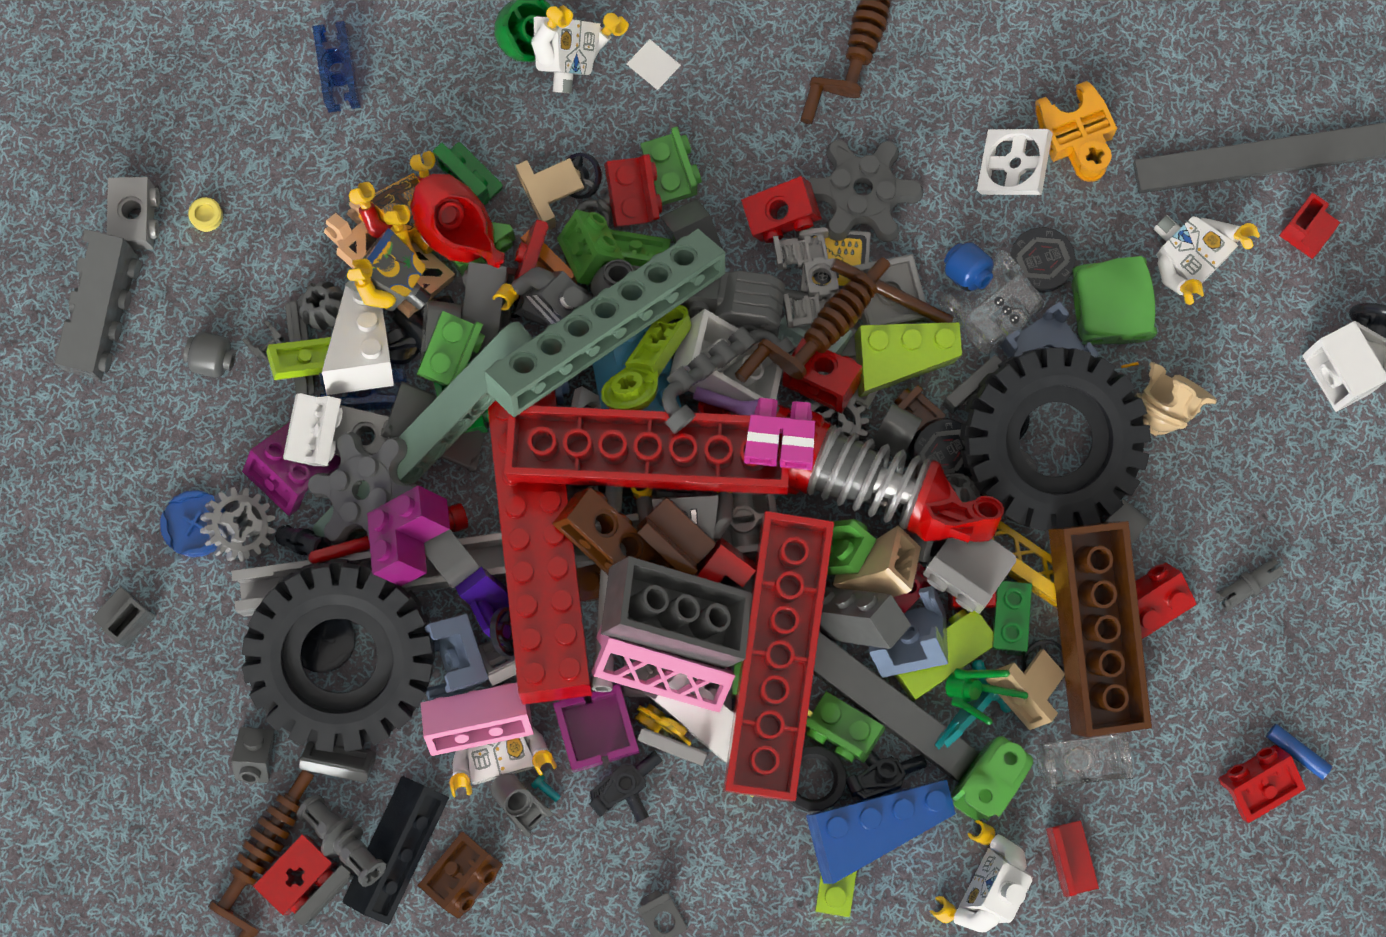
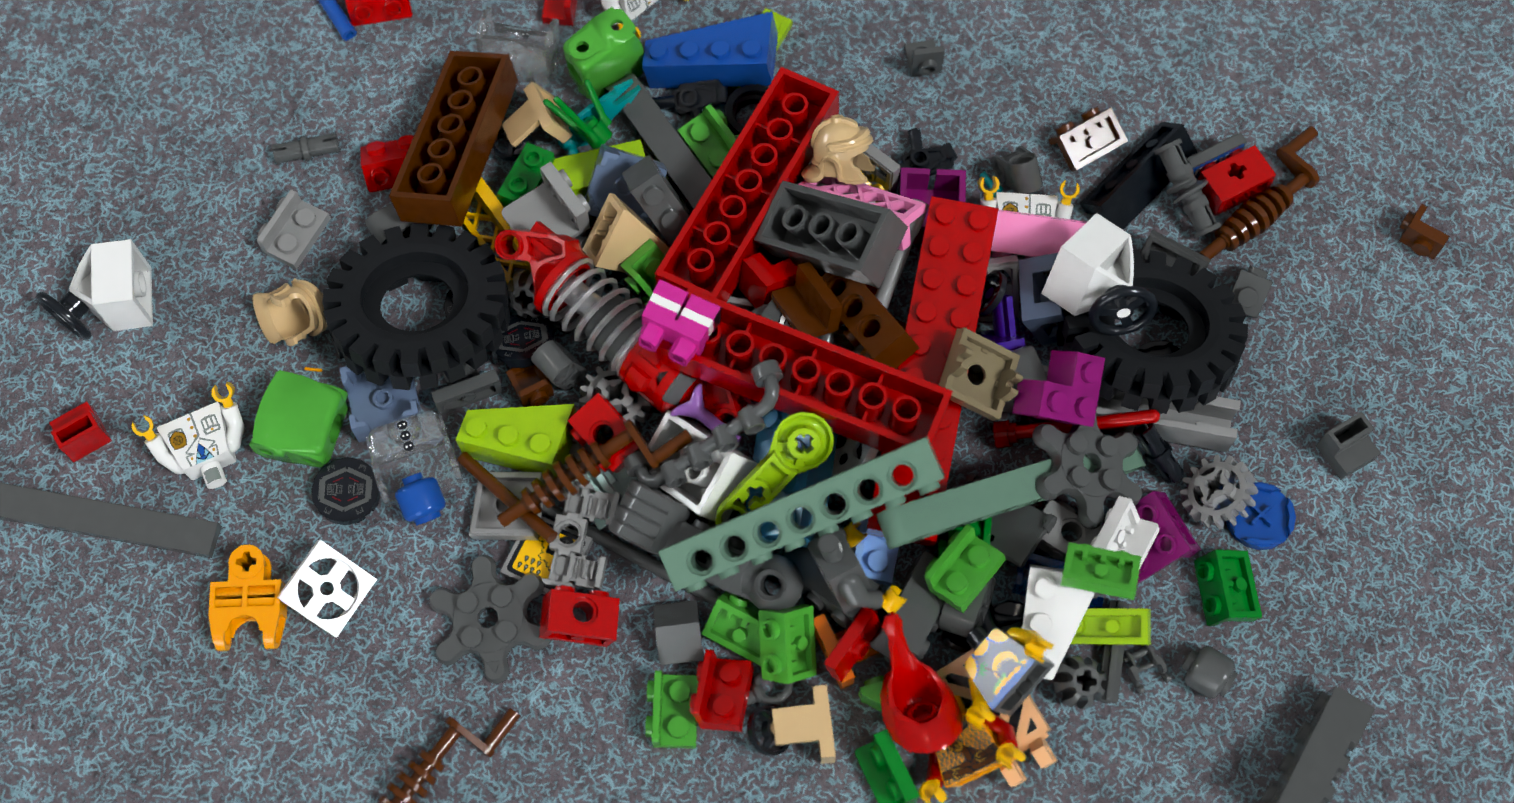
camera: 160 degrees left, 10 degrees down
(88, 871) = (1420, 236): none -> reddish brown bracket
(209, 440) = (1227, 587): none -> green bracket
(324, 370) = (1101, 570): none -> bright green bracket
(403, 667) = (1097, 276): none -> white piece
(469, 515) = (998, 369): none -> dark tan piece
(704, 720) = (839, 151): none -> tan helmet
(1217, 491) = (292, 230): none -> light grey bracket

